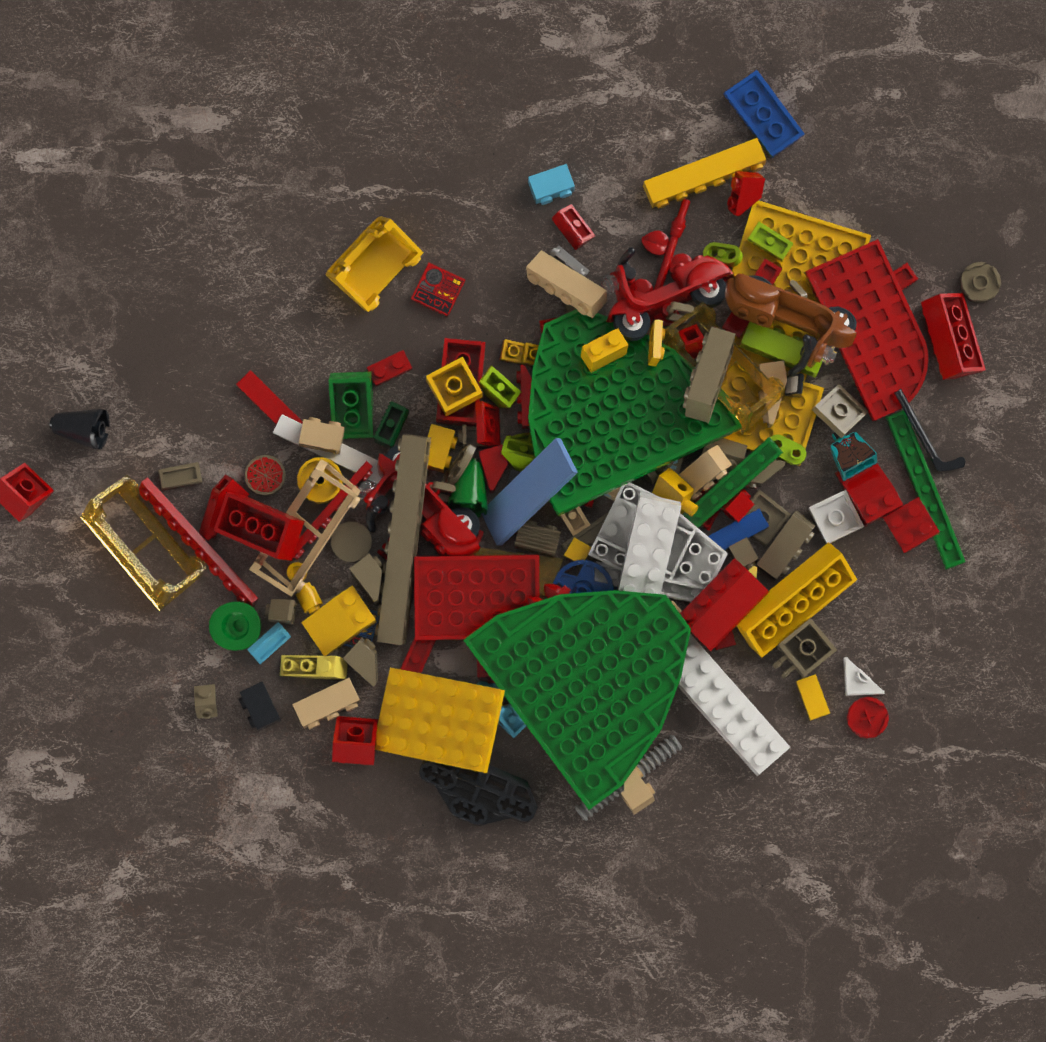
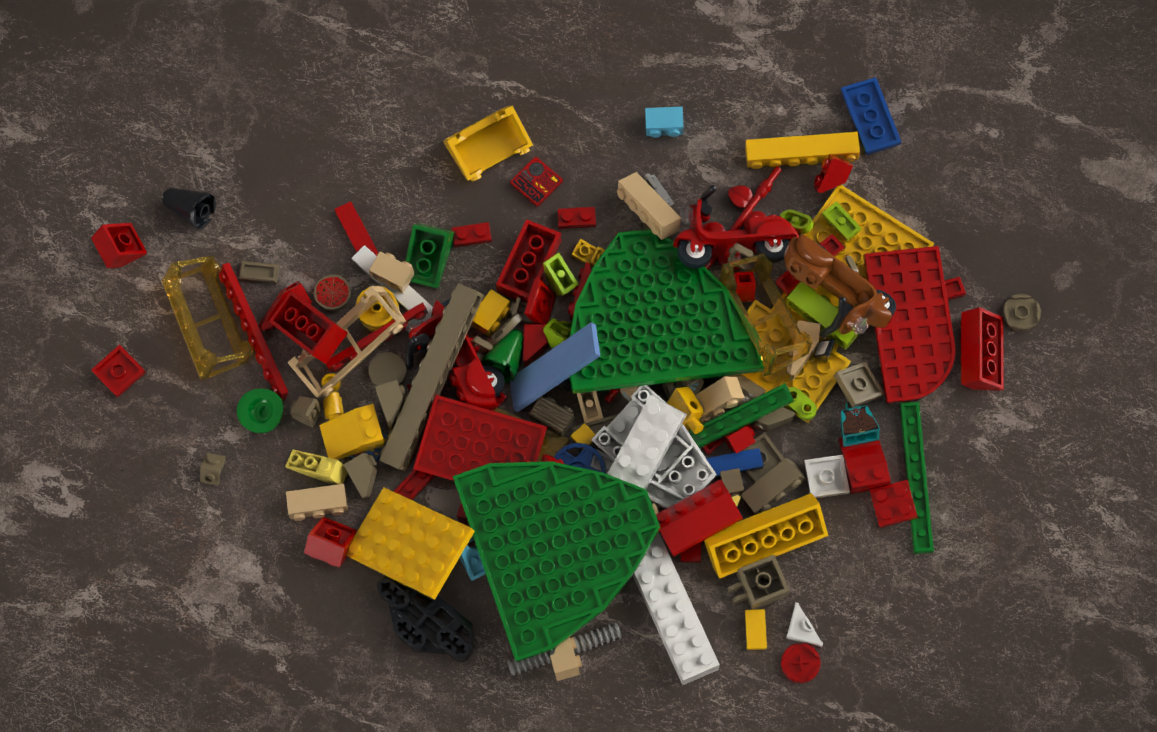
camera: 25 degrees right, 10 degrees down
(70, 628) = (118, 371): none -> red plate
(260, 706) = (258, 486): black brick -> none
(269, 643) = (285, 434): medium azure tile -> none
(391, 425) = (460, 273): dark green brick -> none
(454, 386) = (519, 259): yellow brick -> none
(493, 316) = (576, 217): none -> red plate
(573, 227) = (672, 163): red slope -> none
(604, 350) = (662, 267): yellow brick -> none
(656, 337) = (713, 269): yellow plate -> none
(709, 374) = (748, 312): dark tan brick -> none
(938, 464) = (935, 459): black piece -> none

